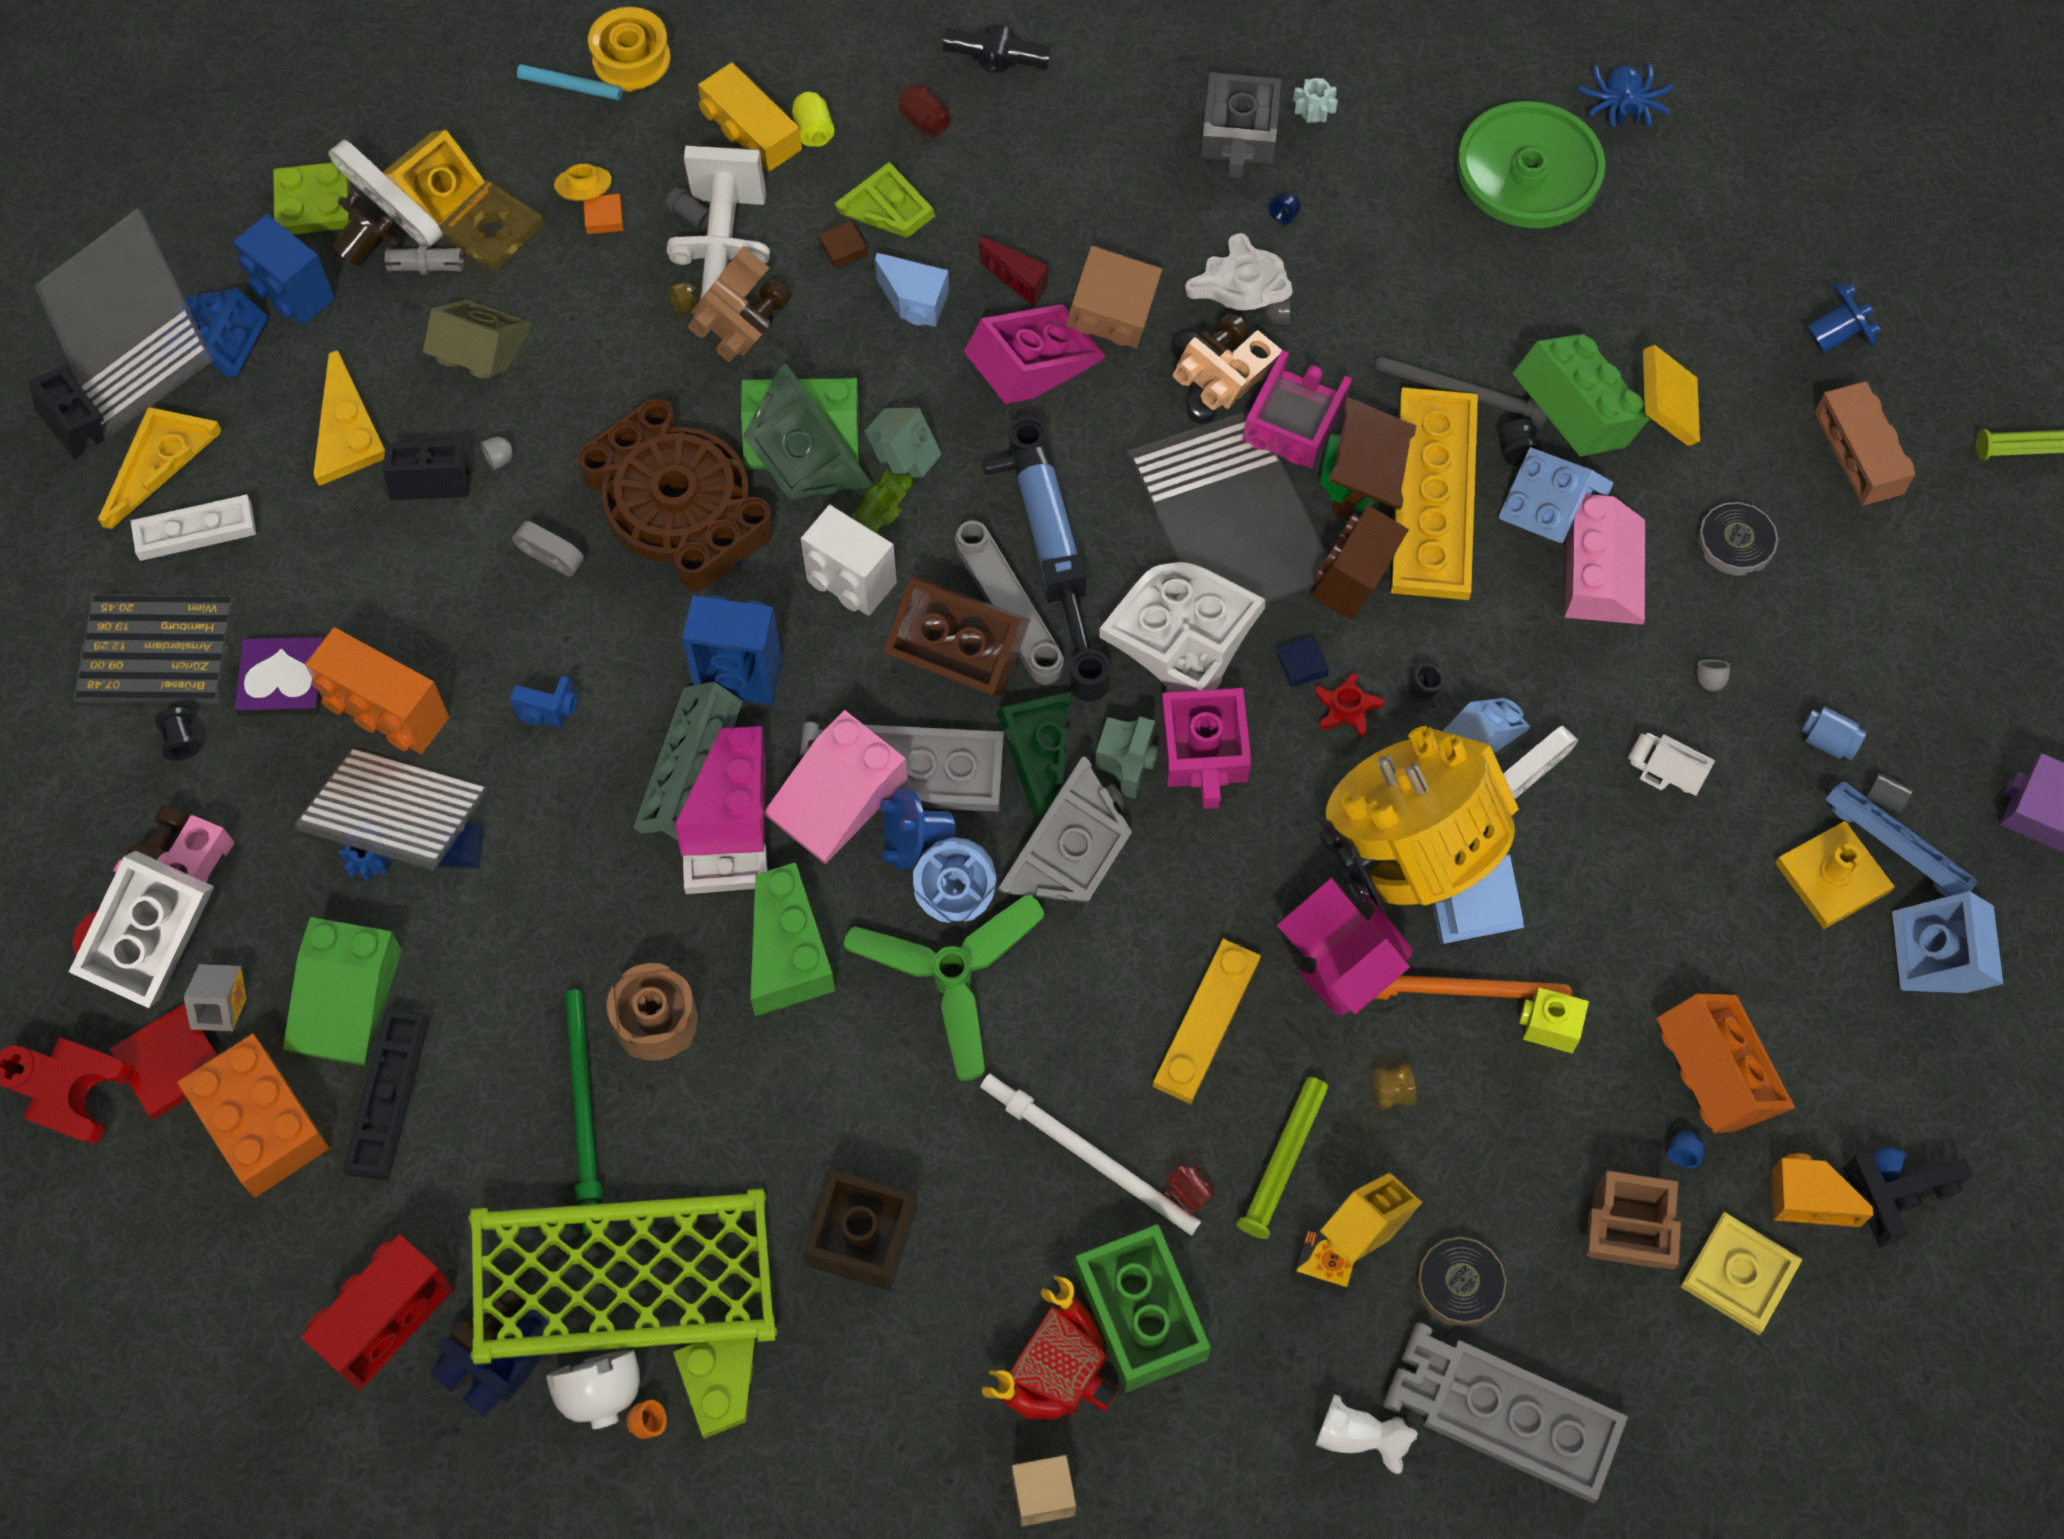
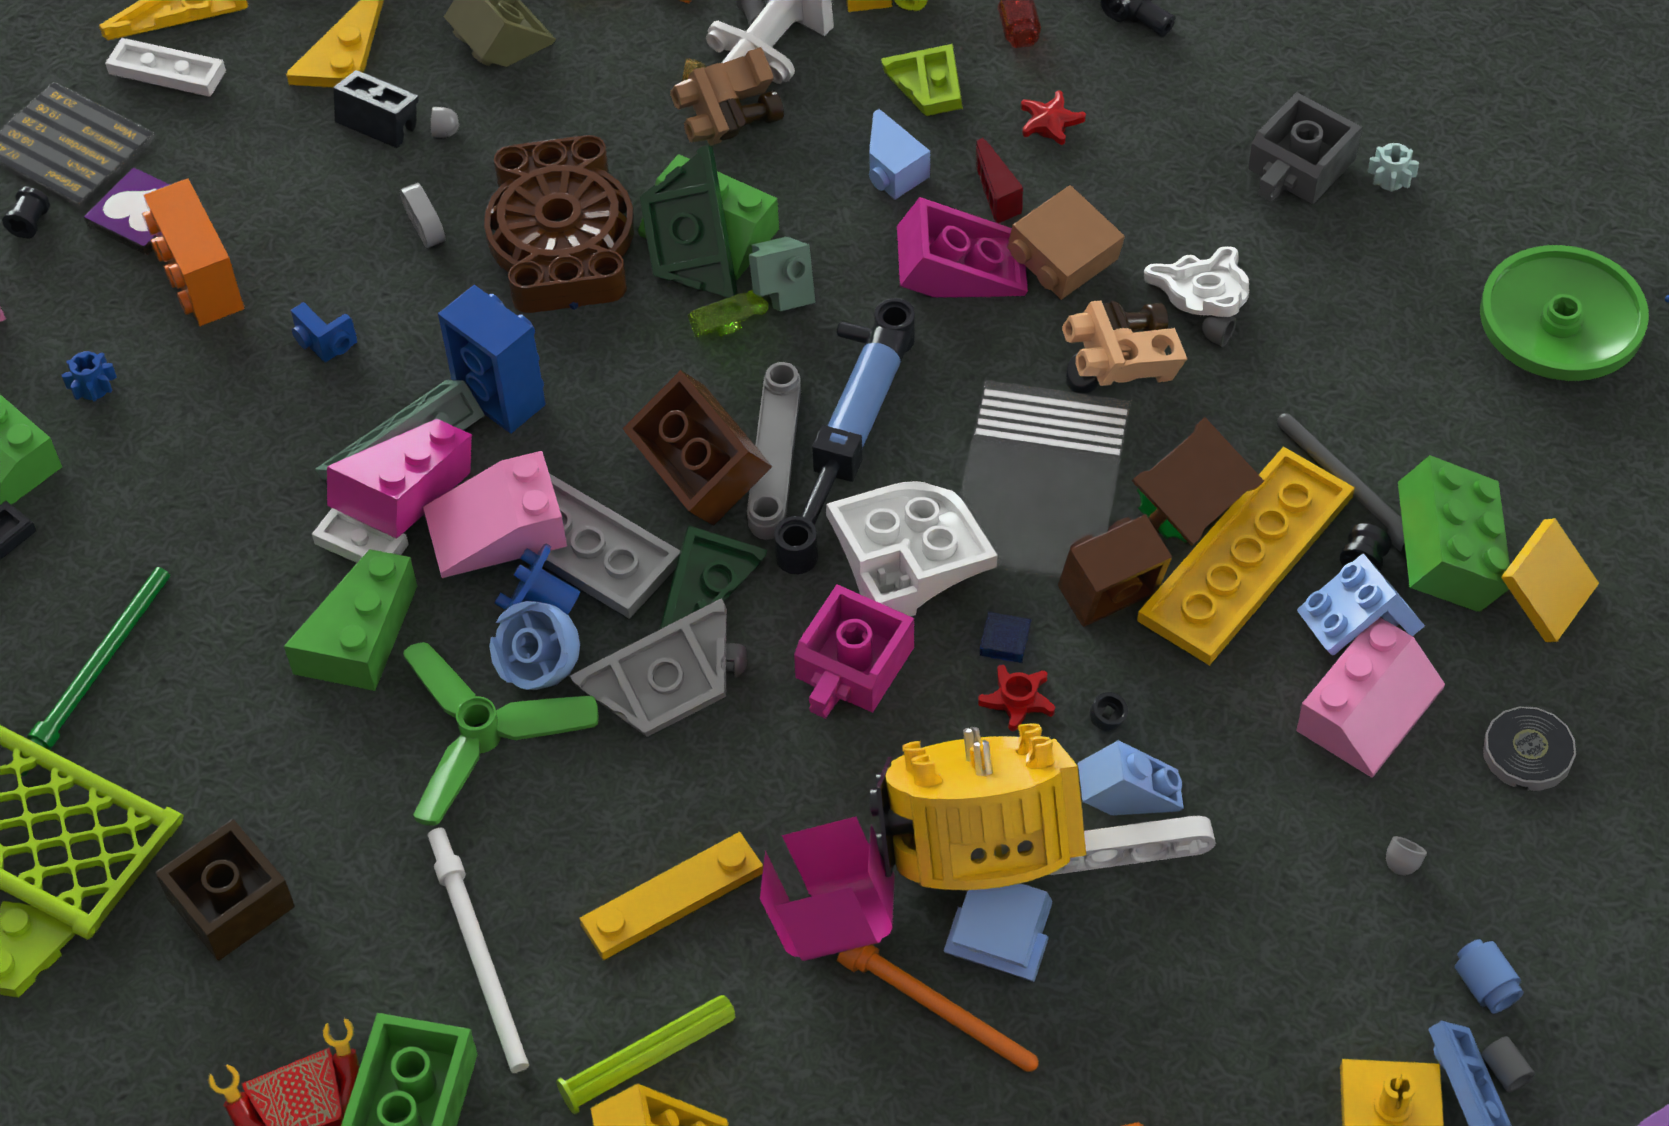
camera: 35 degrees right, 10 degrees down
(391, 808) = (135, 349): piece -> none
(466, 848) = (169, 409): clear blue tile -> none
(630, 1007) = (203, 617): medium nougat brick -> none
(842, 244) = (863, 94): reddish brown tile -> none
(848, 561) = (651, 337): white brick -> none
(1014, 189) = (1050, 118): none -> red animal
(1127, 751) = (775, 625): sand green brick -> none
(1189, 1188) = (537, 1026): clear red hose -> none
(1279, 203) = (1294, 244): clear blue hinge -> none
(1294, 413) = (1157, 413): dark pink window -> none
(1394, 1087) = (793, 1048): clear yellow wheel -> none
(1554, 1019) = (994, 1077): neon yellow brick -> none
(1671, 762) = (1296, 912): white piece -> none

